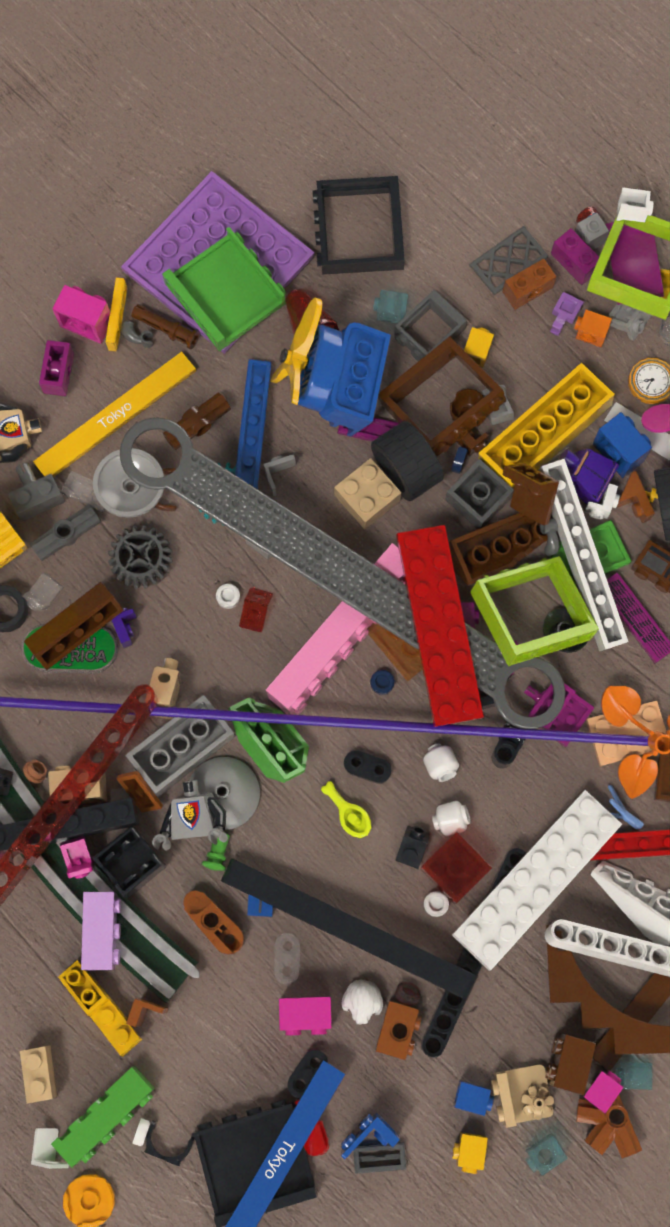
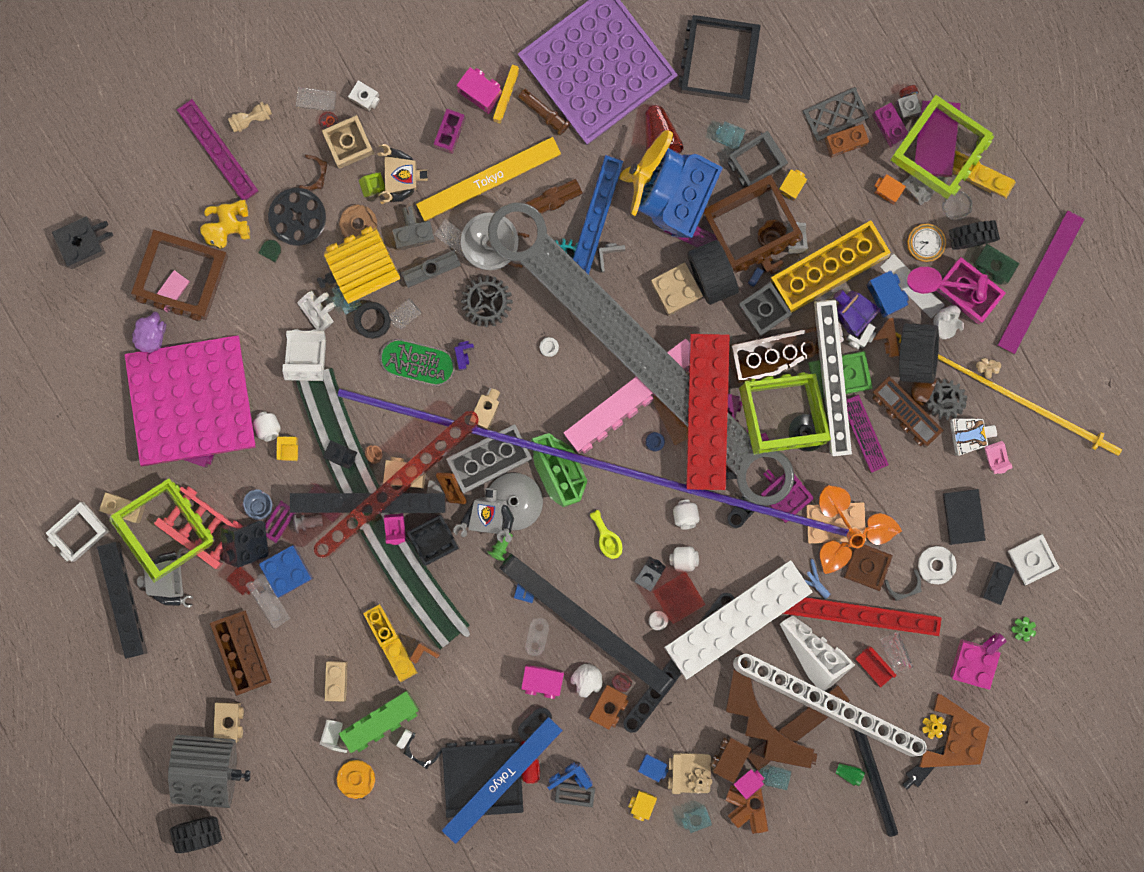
camera: 15 degrees right, 10 degrees up
(73, 625) = (424, 348): reddish brown brick -> none
(100, 931) = (402, 587): lavender brick -> none
(129, 333) = (514, 113): dark grey arm -> none
(198, 907) = (478, 584): dark orange piece -> none
(226, 290) = (598, 94): bright green panel -> none
(255, 610) = (568, 364): clear red bracket -> none
(367, 766) = (629, 505): black plate -> none
(533, 491) = (805, 320): reddish brown bracket -> none
(552, 545) = (813, 350): dark grey arm -> none
(565, 310) = (872, 169): medium lavender plate -> none
(634, 205) = (944, 100): white window -> none

